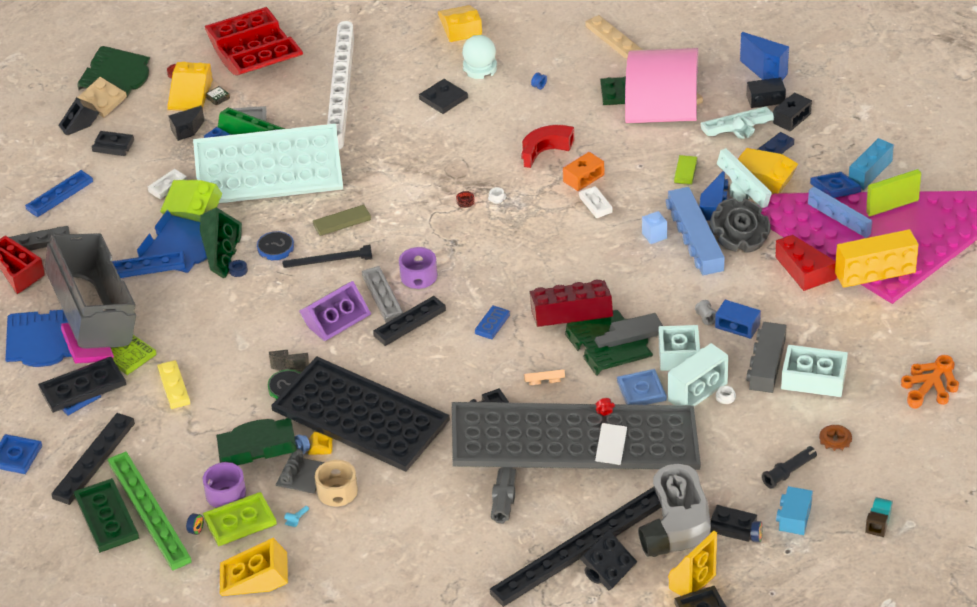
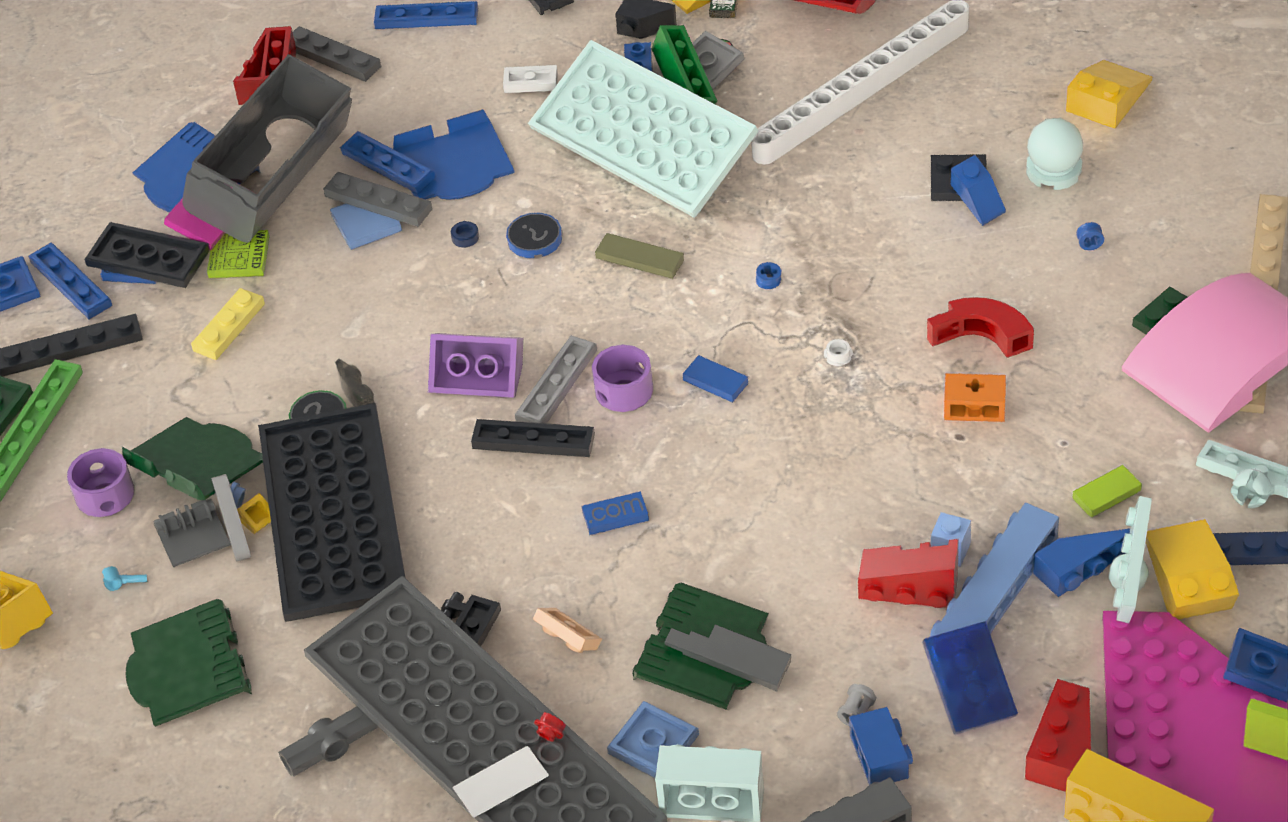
camera: 50 degrees right, 5 degrees up
(50, 426) = (70, 280): none -> blue tile
(172, 280) = (378, 199): none -> dark grey plate
(175, 295) = (362, 226): none -> medium blue tile
(191, 198) = (518, 119): lime slope -> none
(194, 523) = (26, 503): dark blue tile -> none
(219, 236) = (484, 184): dark green wedge -> none
(239, 519) = (69, 534): lime plate -> none
(309, 441) = (231, 517): none -> light grey beam
(336, 488) = (192, 560): tan piece -> none
(364, 252) = (605, 315): black piece -> none
(385, 522) = (186, 663): none -> dark green piece
(416, 188) = (768, 282): none -> blue bush
(455, 242) = (715, 378): none -> blue tile
(465, 199) = (801, 331): clear red tile -> none
(466, 91) = (977, 190): none -> blue slope
(571, 303) = (712, 561): dark red brick -> none
(595, 202) = (934, 450): white plate -> none
(661, 250) = (911, 575): none -> wedge
(677, 345) = (752, 720): light aqua brick -> none
(738, 267) = (969, 677): none -> clear blue plate
(740, 225) = (1075, 633): dark grey piece -> none
(840, 212) = (1197, 718): medium blue plate -> none

